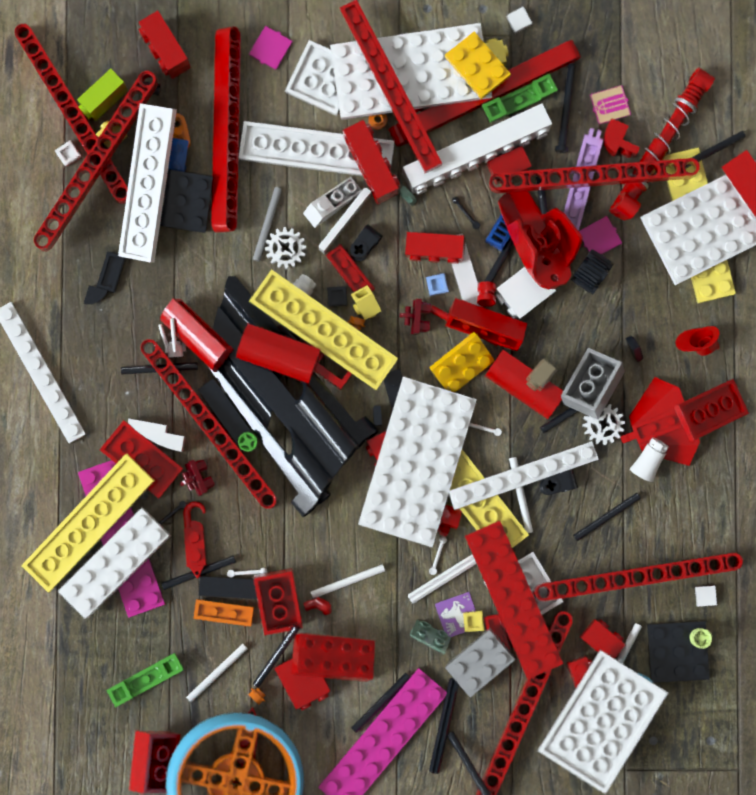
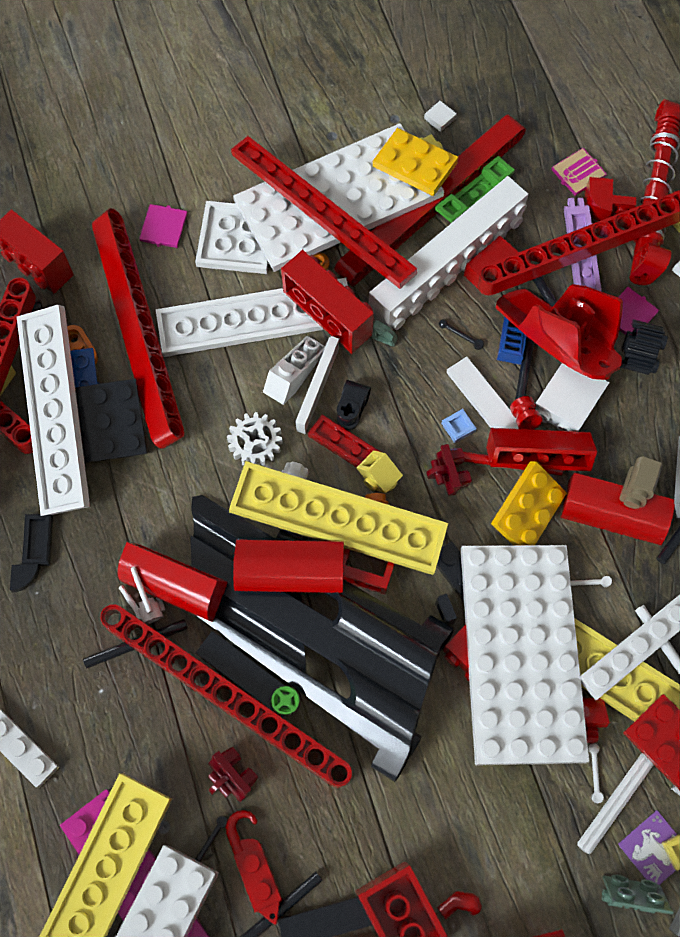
camera: 15 degrees left, 15 degrees down
(154, 461) = (150, 766): red plate -> none
(158, 434) = (159, 732): white slope -> none
(231, 573) = (321, 899): white hinge -> none
(267, 224) = (222, 420): light grey bar -> none
(337, 296) = (339, 477): black tile -> none
(347, 581) = (487, 853): white bar -> none
(435, 247) = (441, 379): red brick -> none
(561, 147) = (544, 230): black bar -> none

